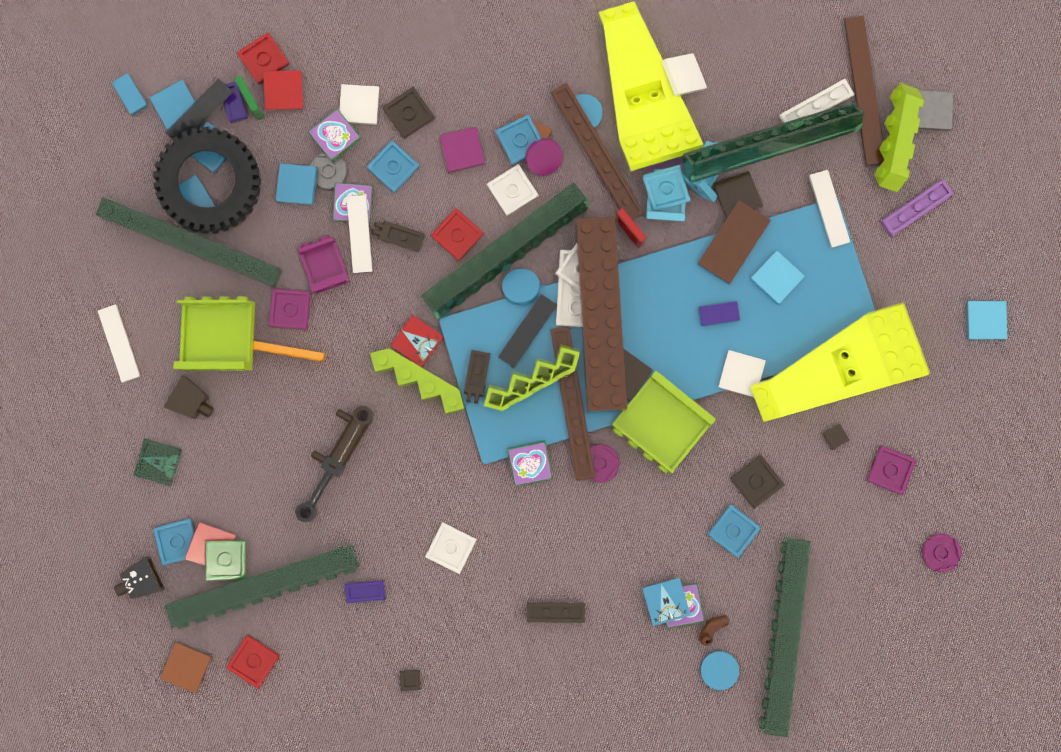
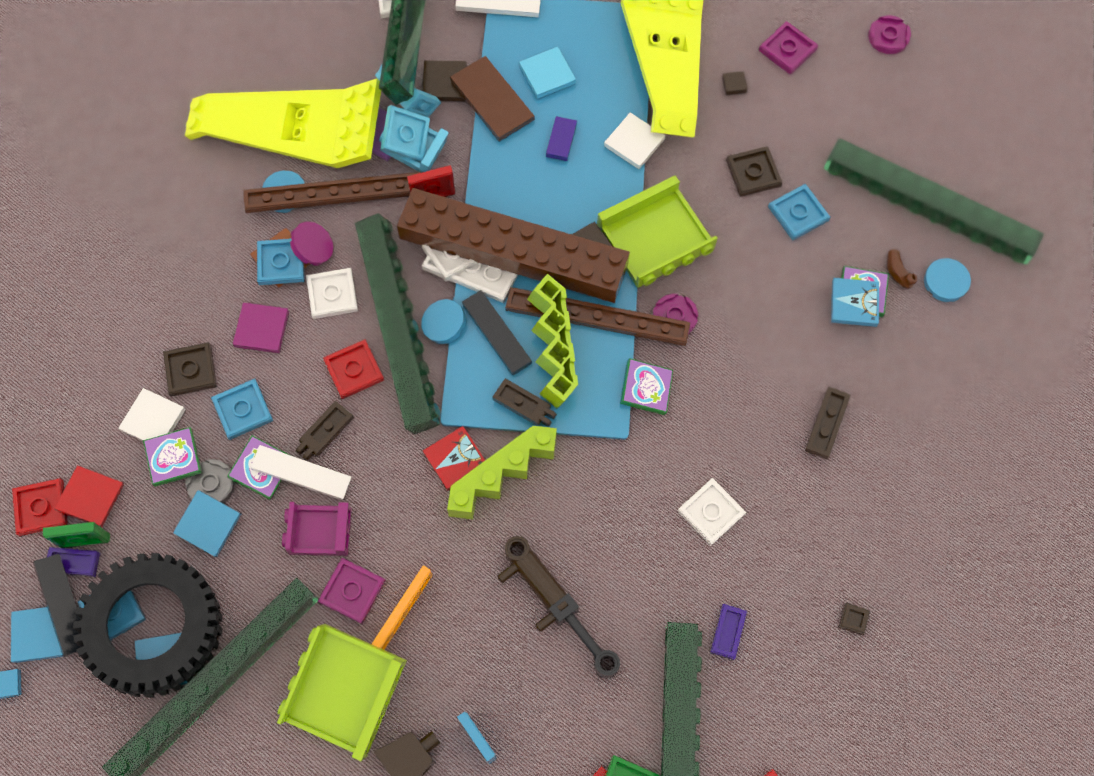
camera: 70 degrees left, 15 degrees down
(218, 442) = (477, 737): none -> dark azure tile
(684, 74) = (294, 80): white tile -> none

